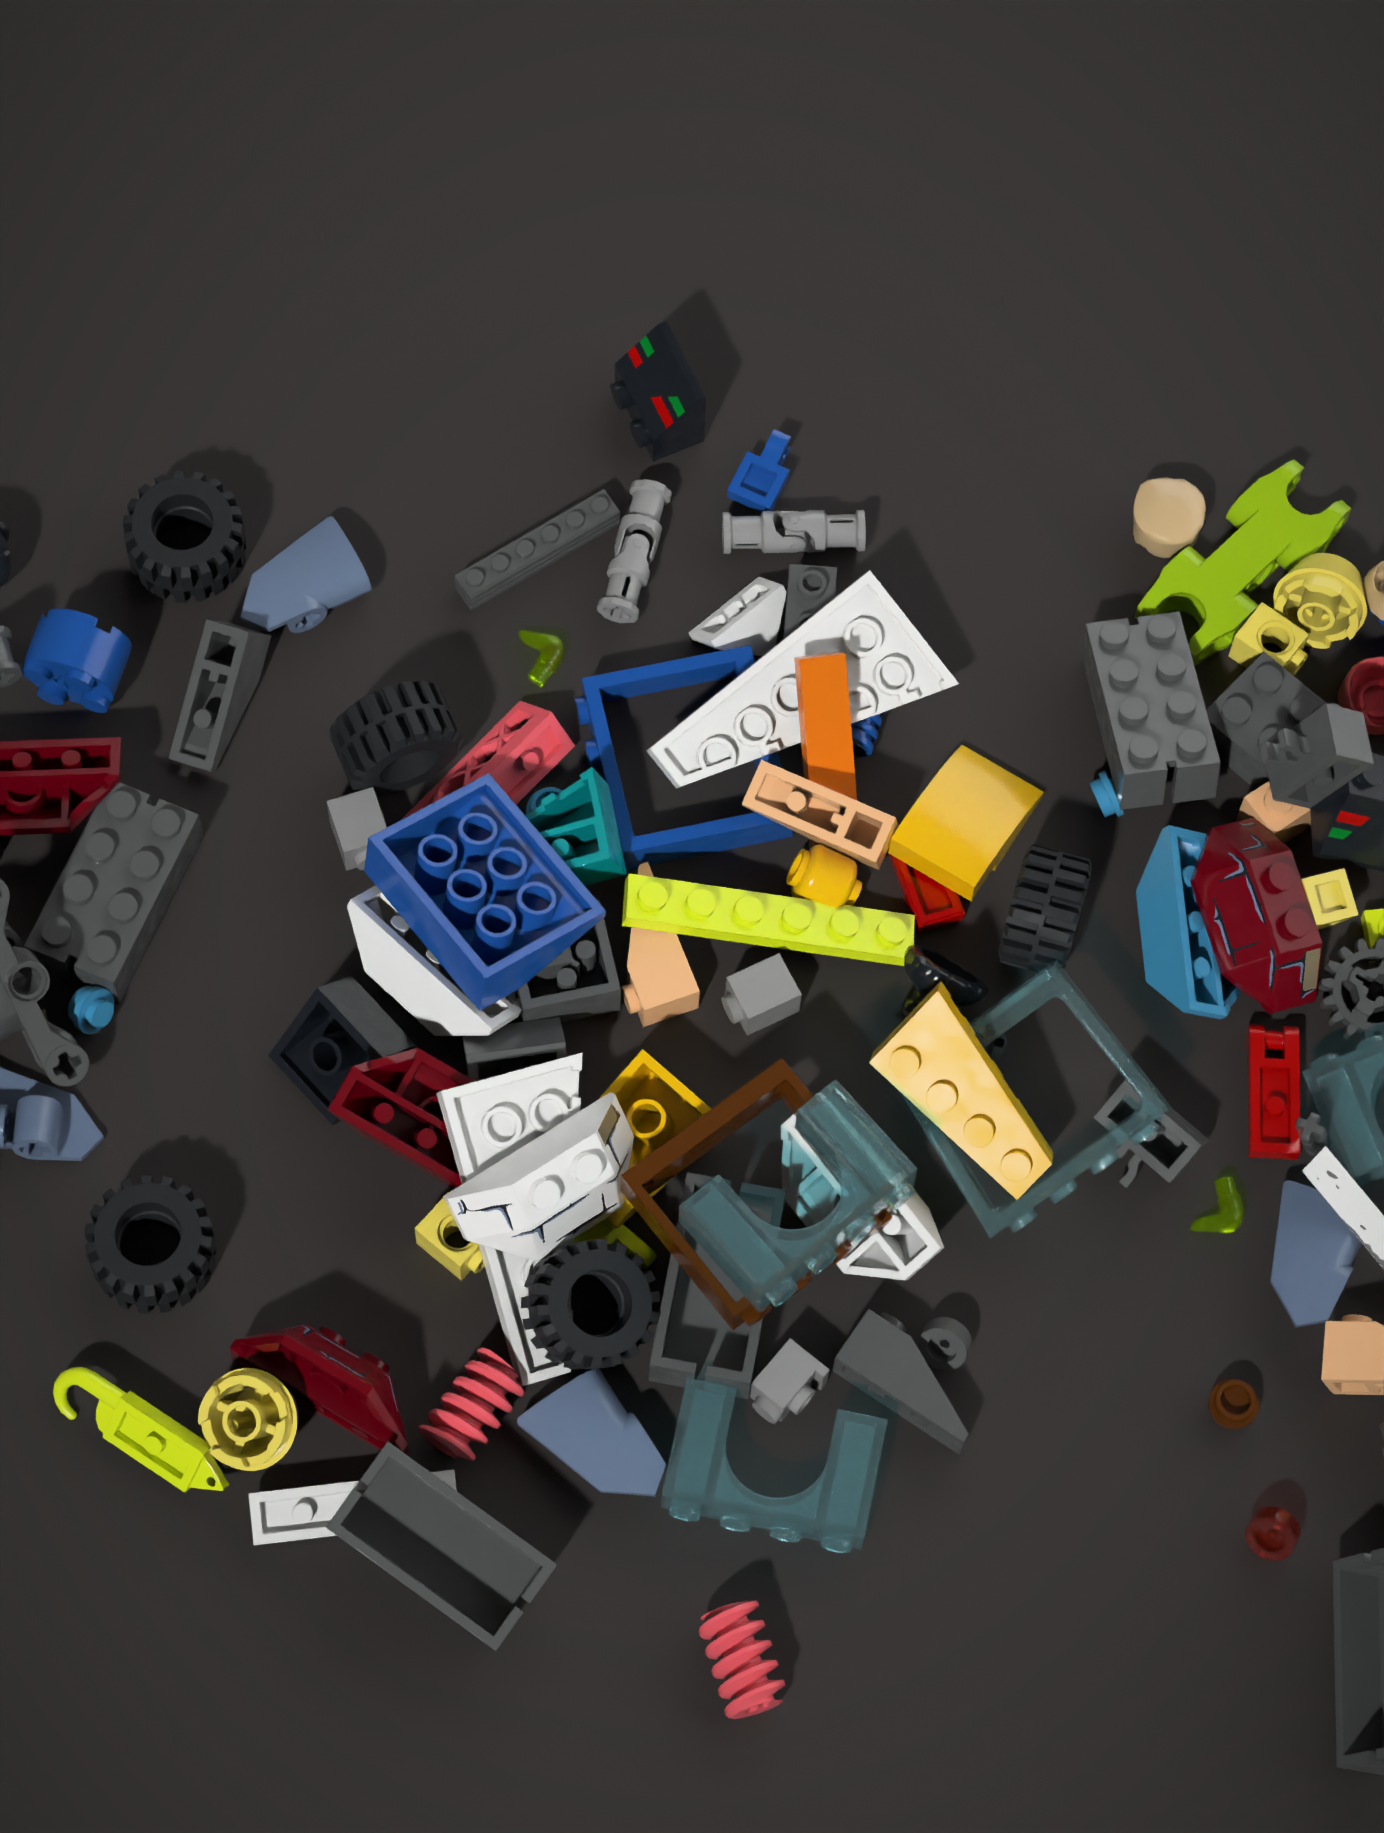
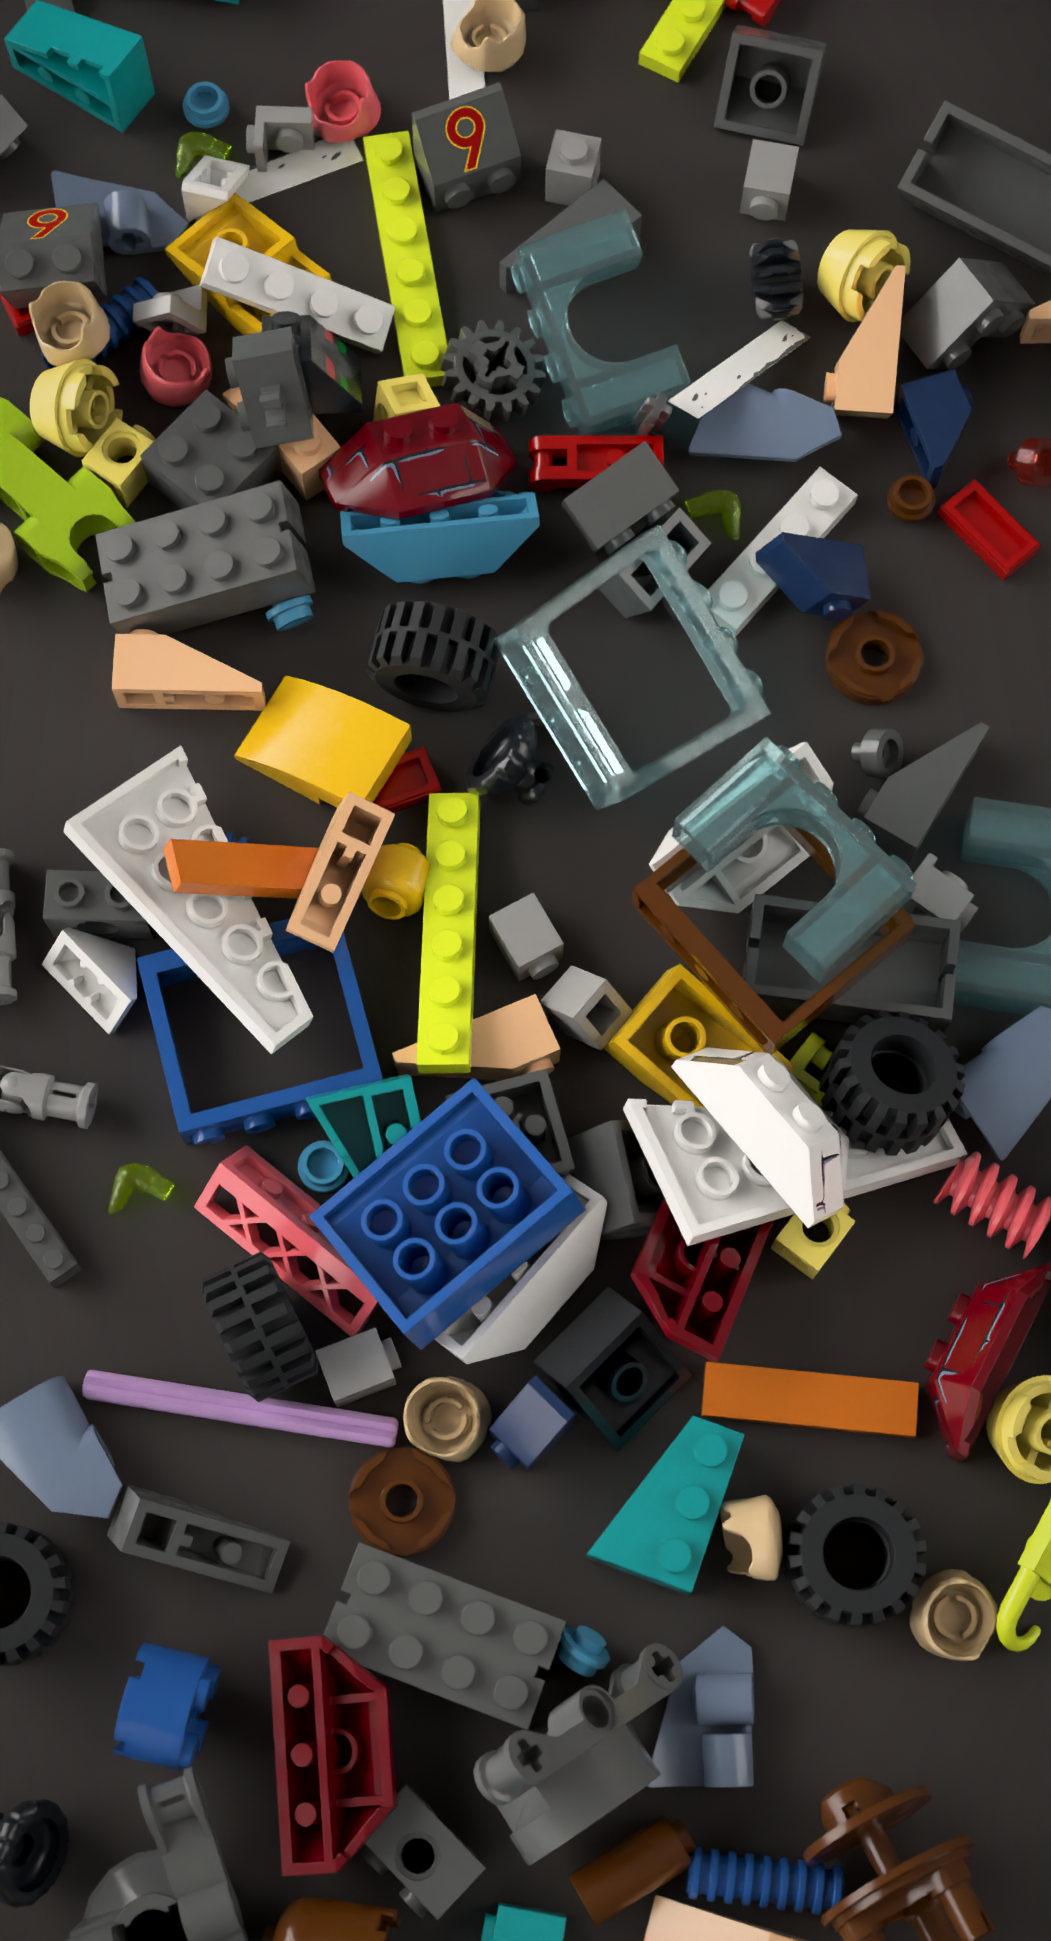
camera: 90 degrees left, 5 degrees up
(89, 1334) = (953, 1615): none -> tan hair
(182, 1156) = (753, 1537): none -> tan hair
(207, 1091) = (673, 1510): none -> teal wedge
(243, 894) = (394, 1469): none -> reddish brown tile
(292, 970) = (530, 1426): none -> dark blue slope
(300, 1227) = (810, 1399): none -> orange tile
(309, 903) = (447, 1418): none -> tan hair
(325, 759) = (240, 1408): none -> lavender axle
(686, 1039) = (586, 1007): none -> light grey brick
(963, 1092) = (636, 731): yellow wedge -> none
(1043, 682) = (167, 674): none -> light nougat slope
(1055, 1381) = (868, 683): none -> reddish brown tile
(1136, 1291) = (817, 574): none -> dark blue slope
(1175, 1266) = (810, 512): none -> white plate
(1199, 1483) = (989, 529): none -> red tile
(1211, 1093) = (620, 498): none -> dark grey brick
(1318, 1432) = (933, 420): none -> dark blue slope

